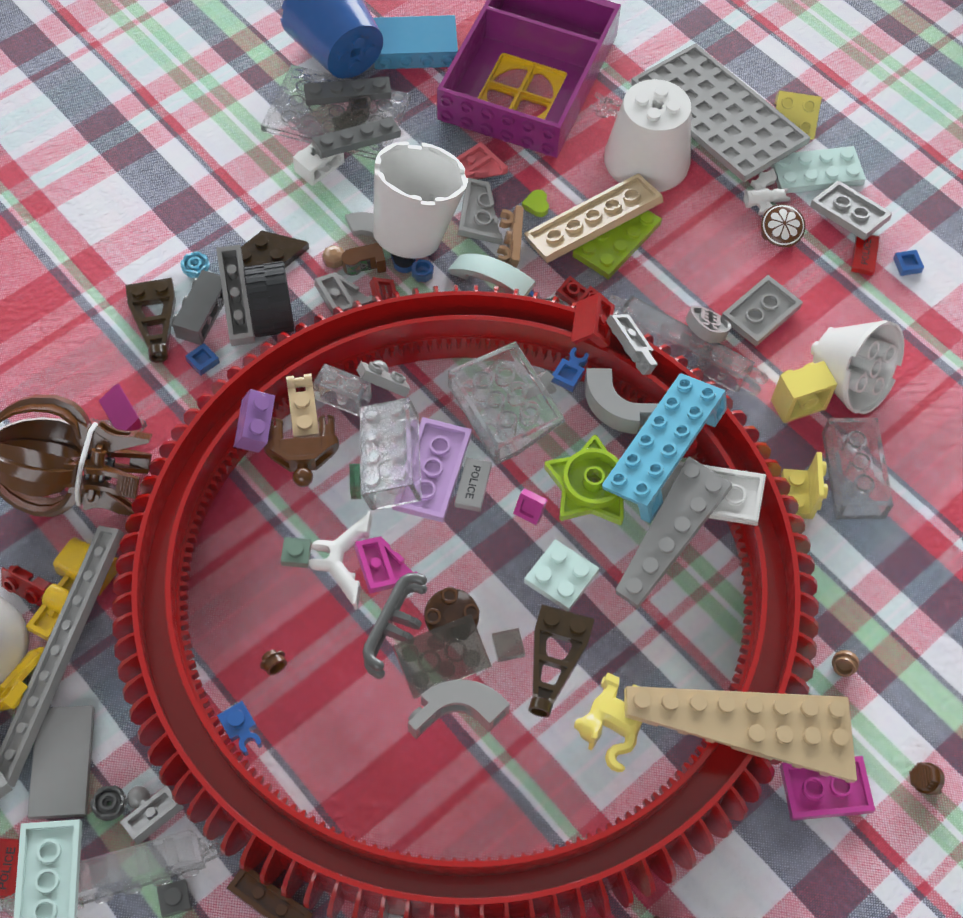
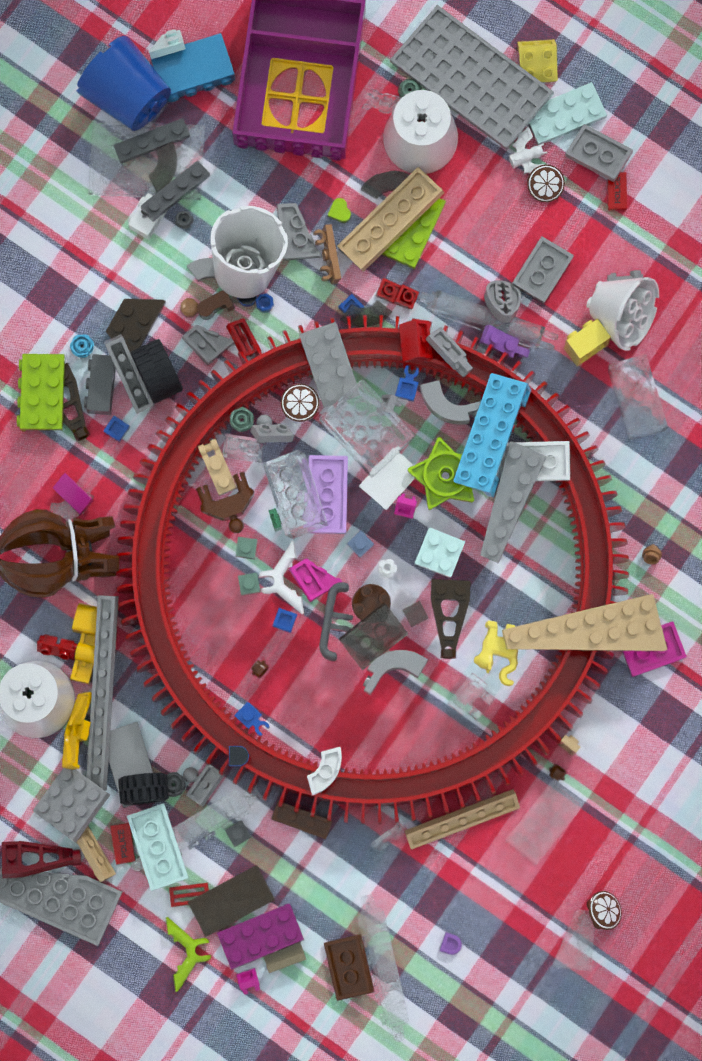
camera: 10 degrees left, 20 degrees up
(59, 790) = (143, 788): none -> black tyre
(127, 297) = (41, 392): none -> lime bracket
(201, 771) = (238, 756): none -> black tile
(254, 421) = (188, 492): medium lavender brick -> none
(307, 508) = (246, 548): none -> sand green plate
(320, 827) = (327, 771): none -> white tile
(328, 609) = (284, 620): none -> blue tile
(349, 354) = (240, 413): none -> sand green plate
(357, 172) = (180, 216): none -> dark grey plate
(399, 10) = (167, 44): none -> light aqua wing
(429, 360) = (300, 402): none -> dish
(458, 539) = (360, 544): none -> sand blue plate
(473, 484) = (359, 498): light grey tile -> none
(477, 316) = (328, 363): none -> light grey plate
(481, 163) = (280, 185): coral wing -> none
(485, 583) = (387, 563): none -> white plate
(492, 271) = (322, 295): light aqua slope -> none
(517, 473) = (389, 481): none -> white sticker
(556, 769) = (468, 694): none -> clear plate
(587, 188) = (383, 183): none -> clear smoke tile
(685, 890) = (570, 744): none -> tan plate
(696, 360) = (502, 342): none -> medium lavender plate
(808, 486) = (600, 424): light yellow bracket -> none
(908, 262) = (653, 190): blue tile -> none

